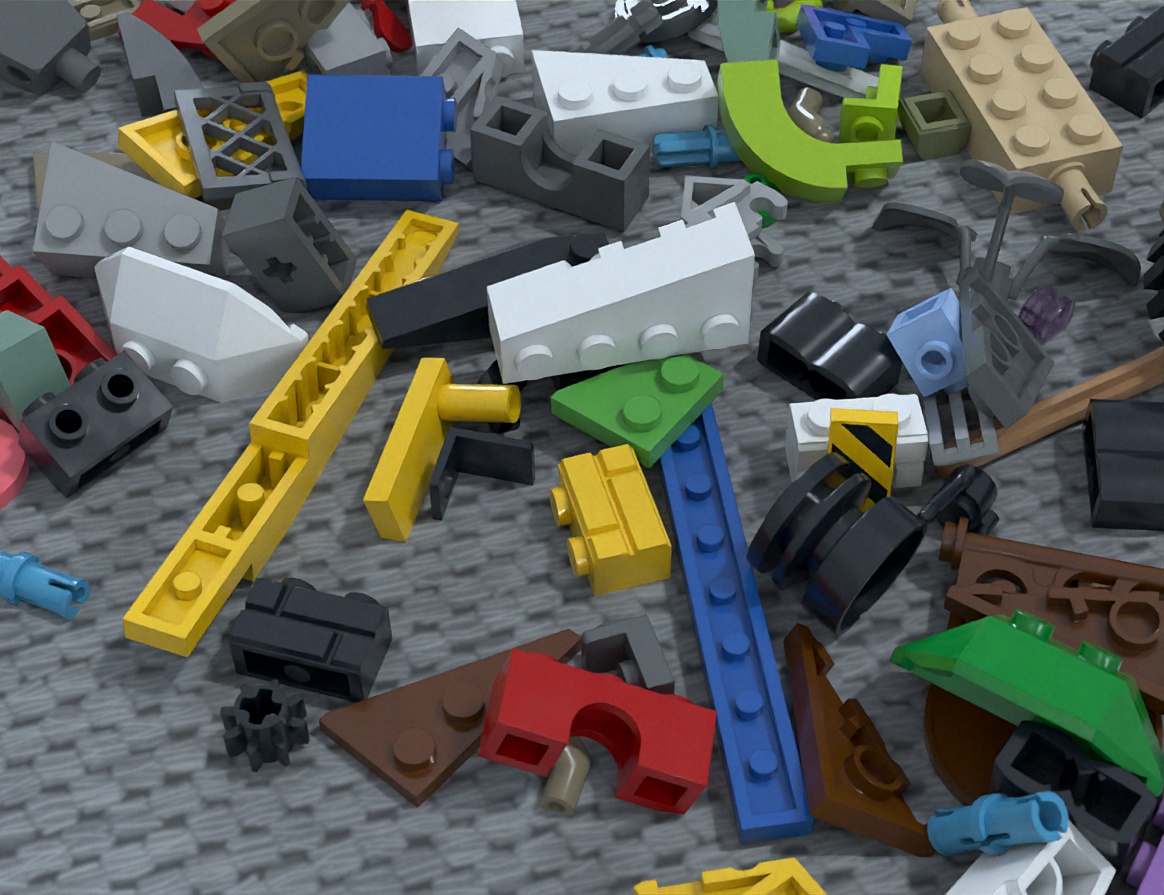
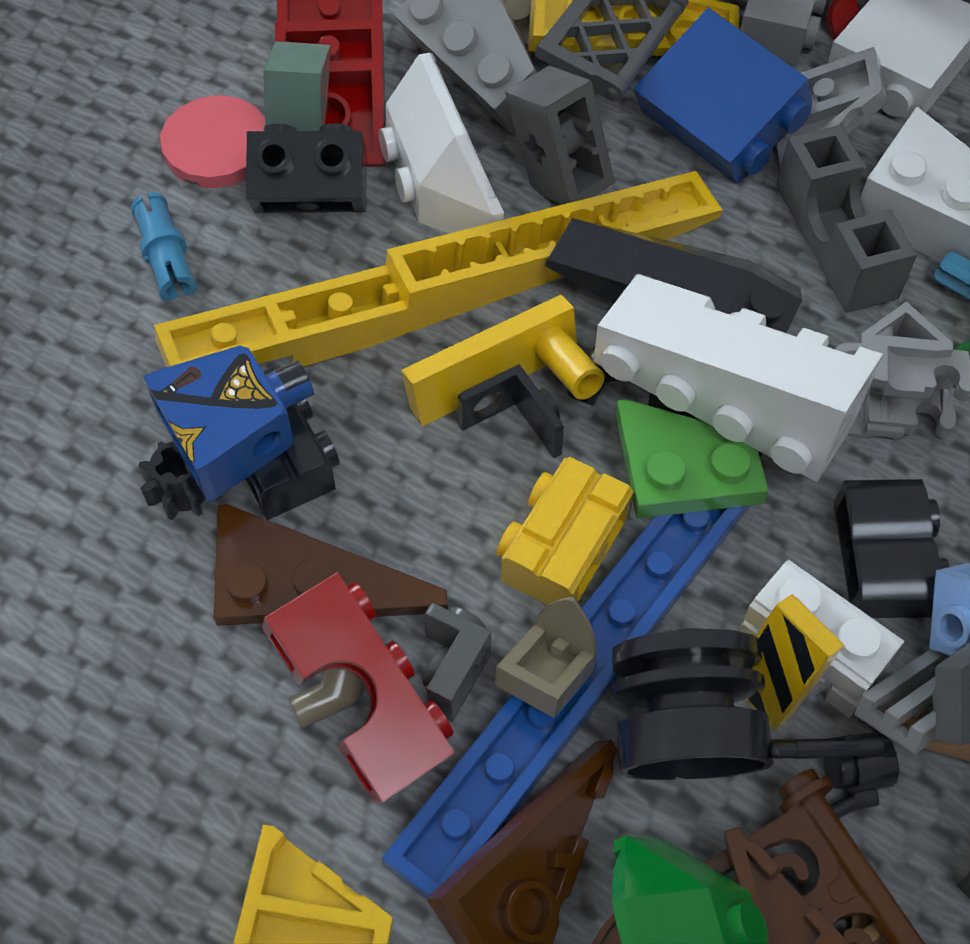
camera: 45 degrees right, 10 degrees up
(273, 629) = (227, 414): none -> blue torso
(711, 589) = (550, 658): none -> dark tan plate

